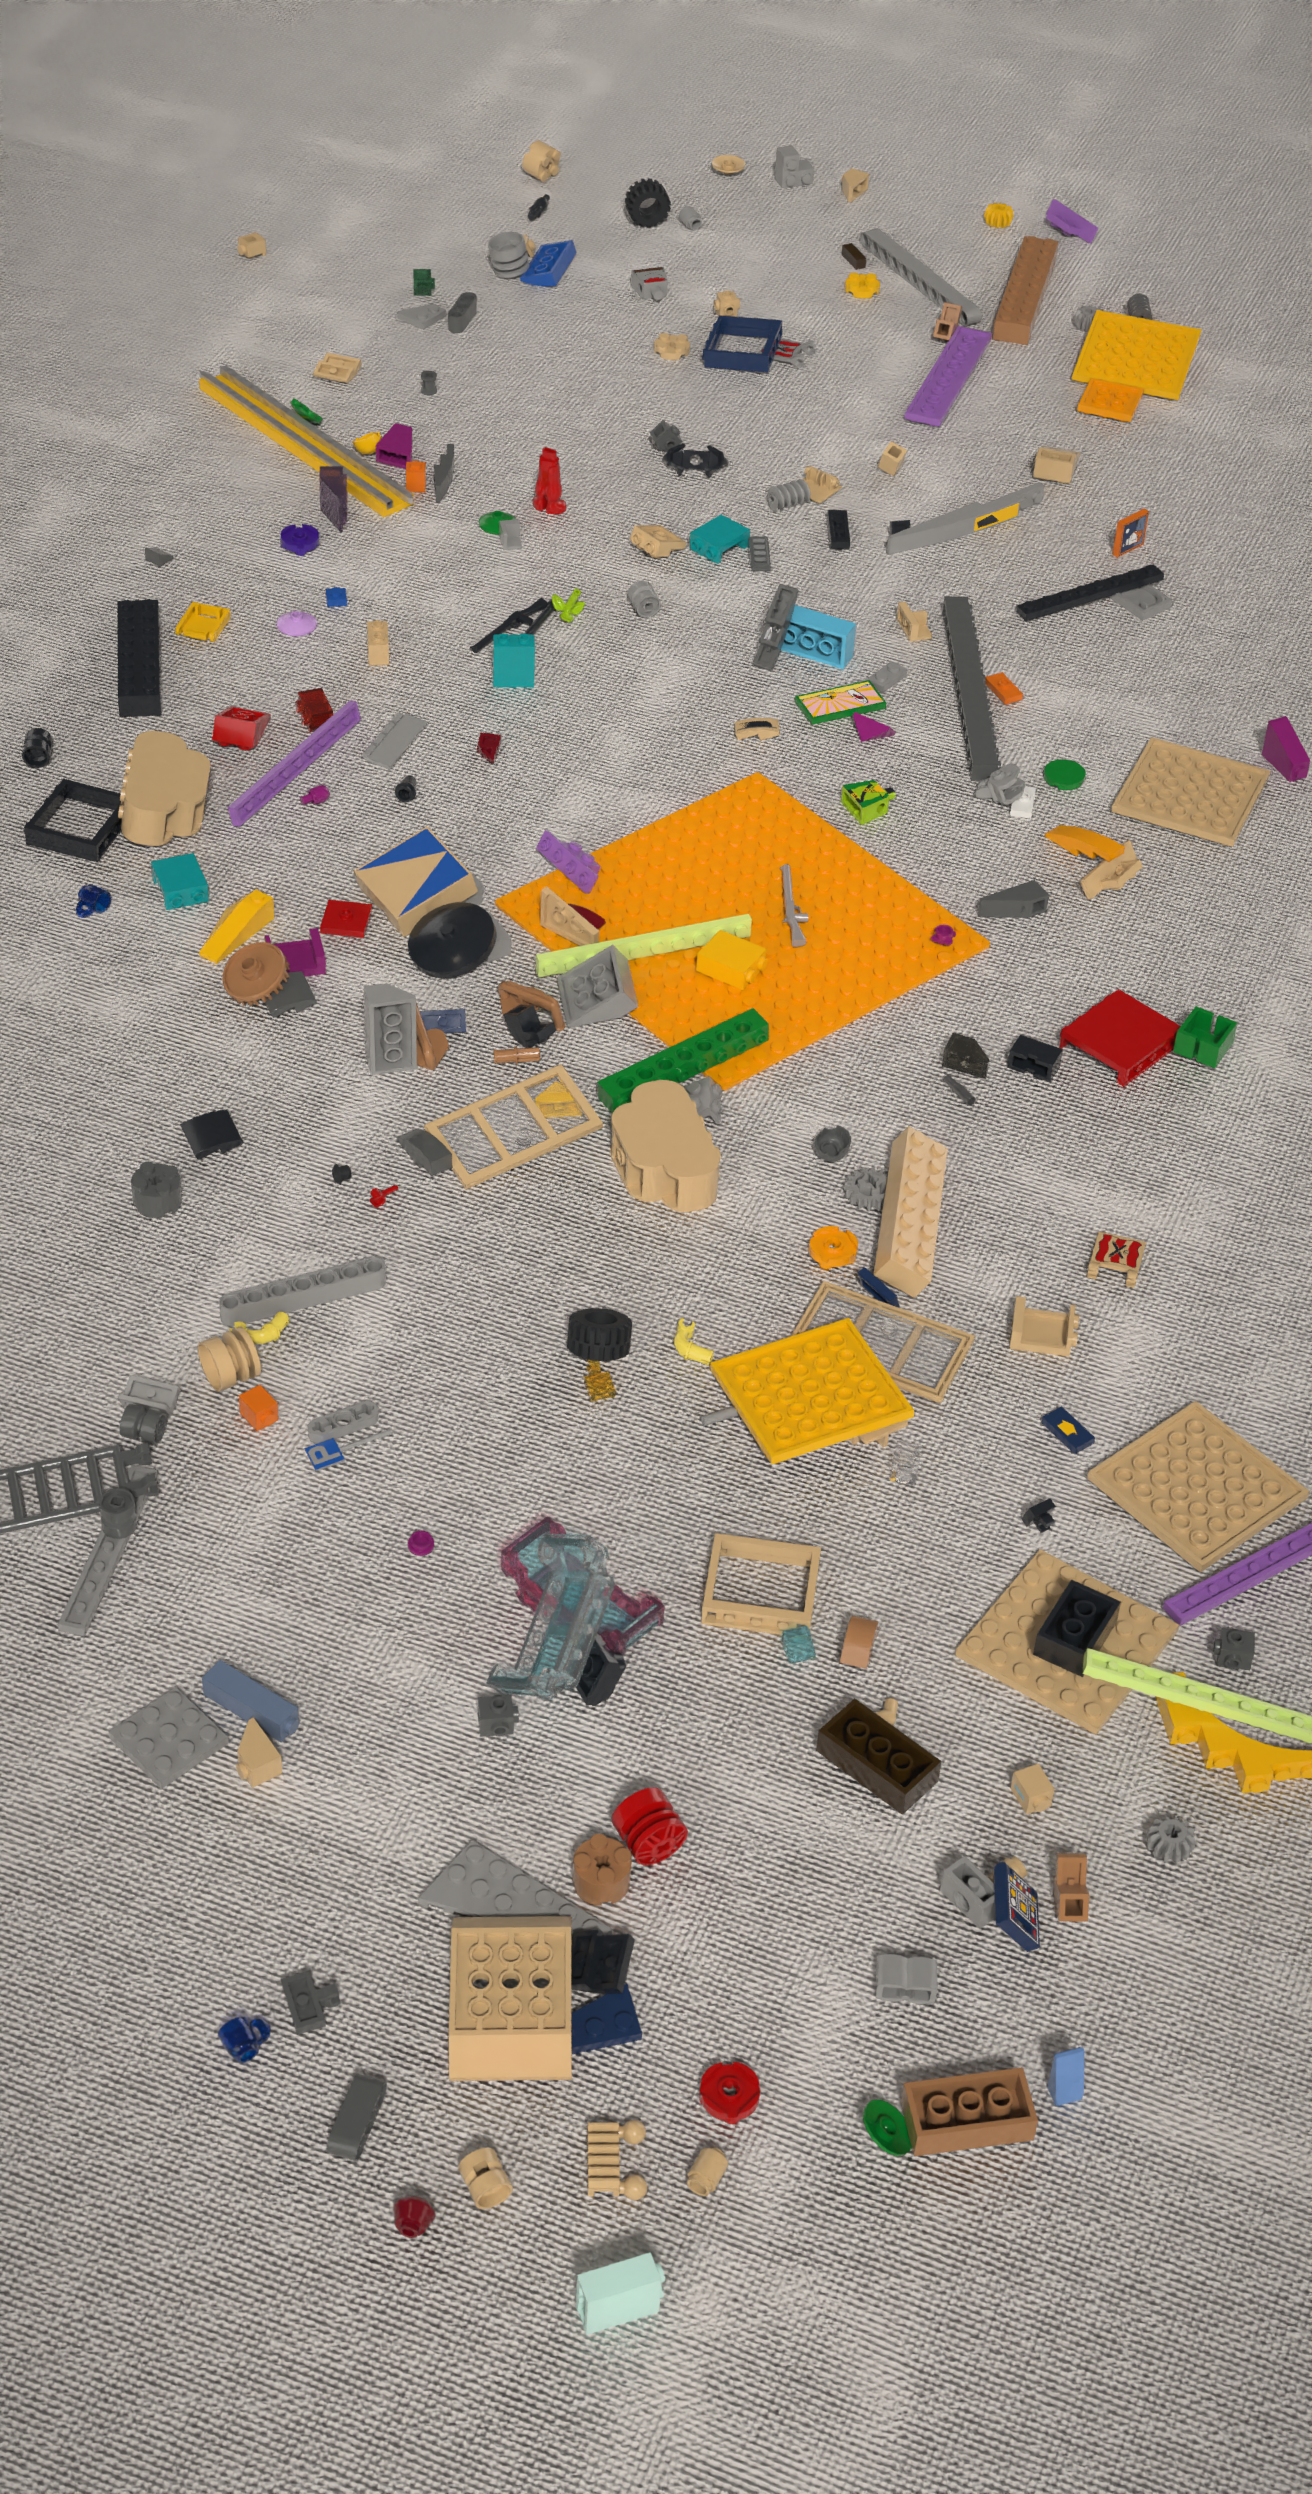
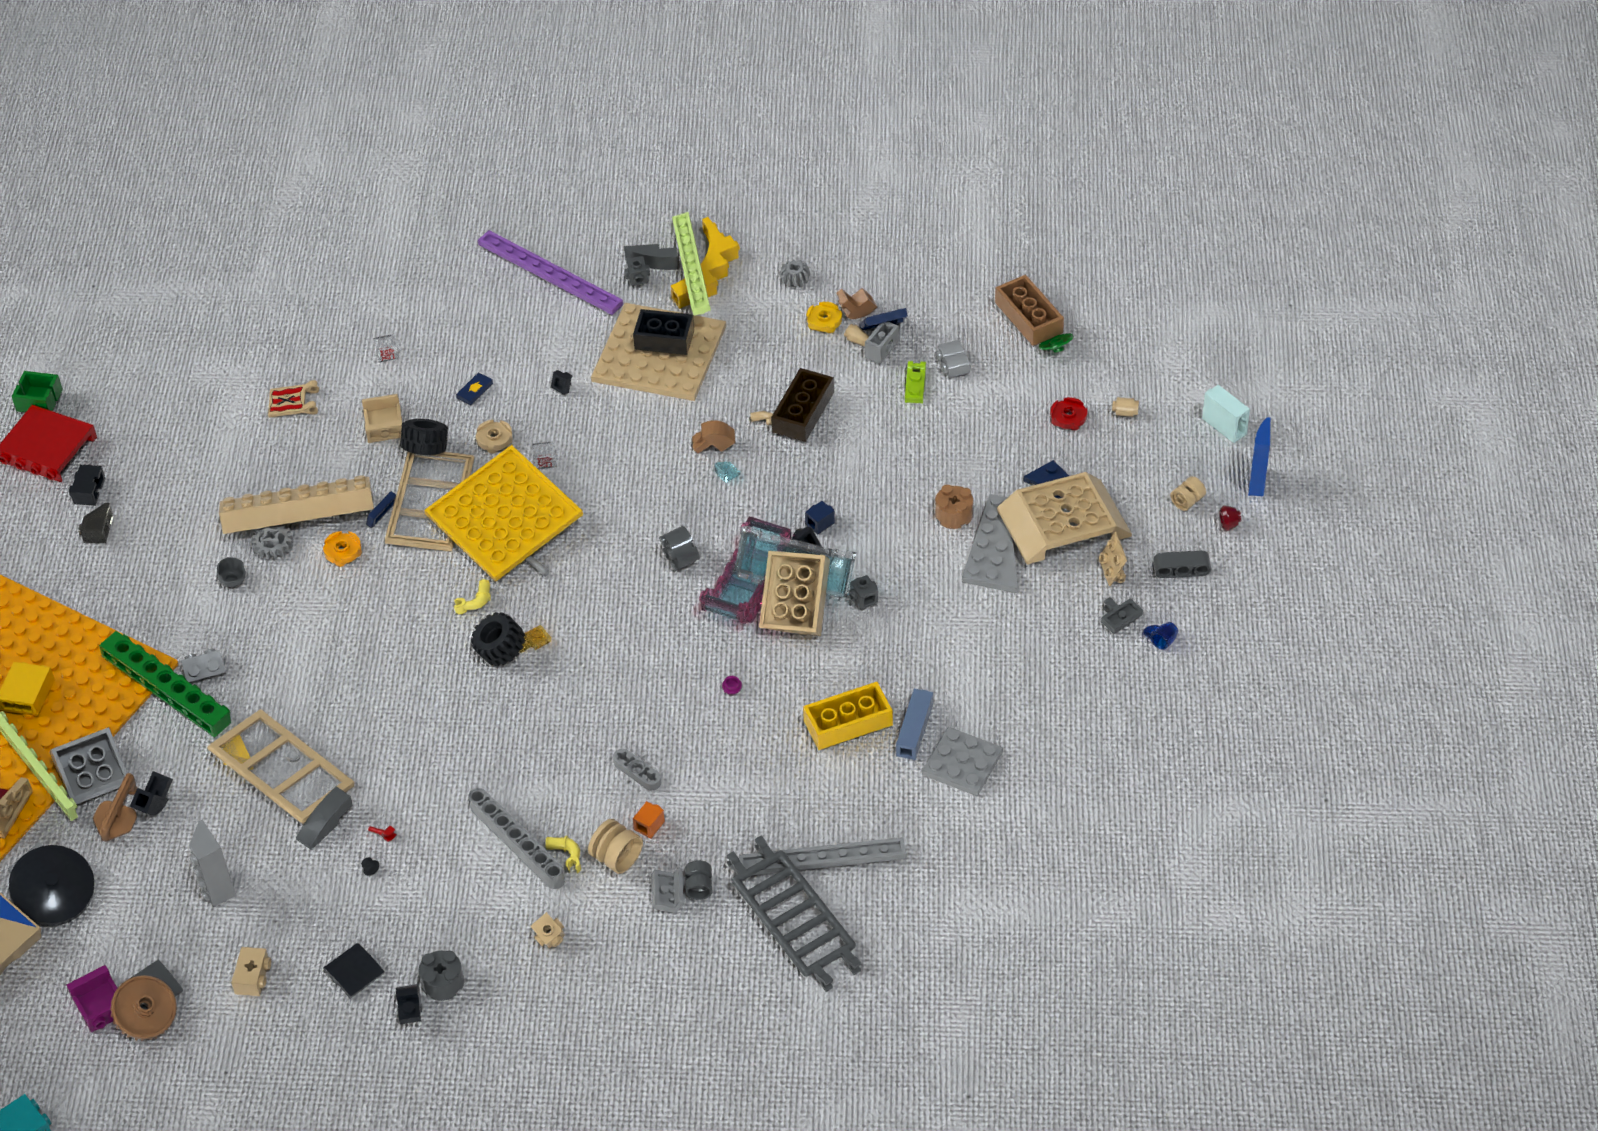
camera: 105 degrees left, 5 degrees up
(118, 1513) = (800, 846): dark grey wheel -> none
(133, 1152) = (409, 1003): none -> black brick
(155, 1282) = (543, 926): none -> tan brick
(238, 924) = (60, 1060): yellow wedge -> none
(257, 1059) = (251, 971): none -> tan brick
(257, 1756) = (956, 704): tan slope -> none
(297, 1631) = (847, 715): none -> yellow brick
(329, 1454) = (669, 771): piece -> none
(346, 918) = (30, 985): red plate -> none
(413, 2018) = (1113, 560): none -> tan hinge
(430, 1044) = (180, 863): medium nougat piece -> none
(446, 1020) = (159, 861): dark blue plate -> none
(475, 2271) = (1260, 459): none -> blue slope
(511, 1624) = (794, 592): none -> tan slope
(516, 1055) = (185, 799): medium nougat axle -> none
(600, 1961) = (1013, 480): black slope -> none
(604, 2158) = (1141, 454): tan gear -> none
(649, 1826) = (914, 488): red wheel -> none
(659, 1715) = (820, 517): none -> dark blue brick
(665, 1148) = (275, 663): tan brick -> none
(666, 1543) = (679, 548): none -> dark grey brick
(758, 1617) = (681, 472): tan window -> none
(882, 1920) = (915, 382): none -> lime plate
(961, 1091) = (135, 523): flat silver pin -> none
(966, 1437) = (499, 442): none -> tan plate
(988, 1332) = (424, 436): none -> black tyre
(1032, 1789) = (788, 337): tan brick -> none
(1066, 1835) = (827, 324): none -> yellow plate
(1067, 2076) = (983, 277): medium blue slope -> none
(1175, 1357) = (387, 348): none -> clear brick
(1198, 1485) = (500, 317): tan plate -> none
(1268, 1675) = (653, 256): none -> dark grey slope

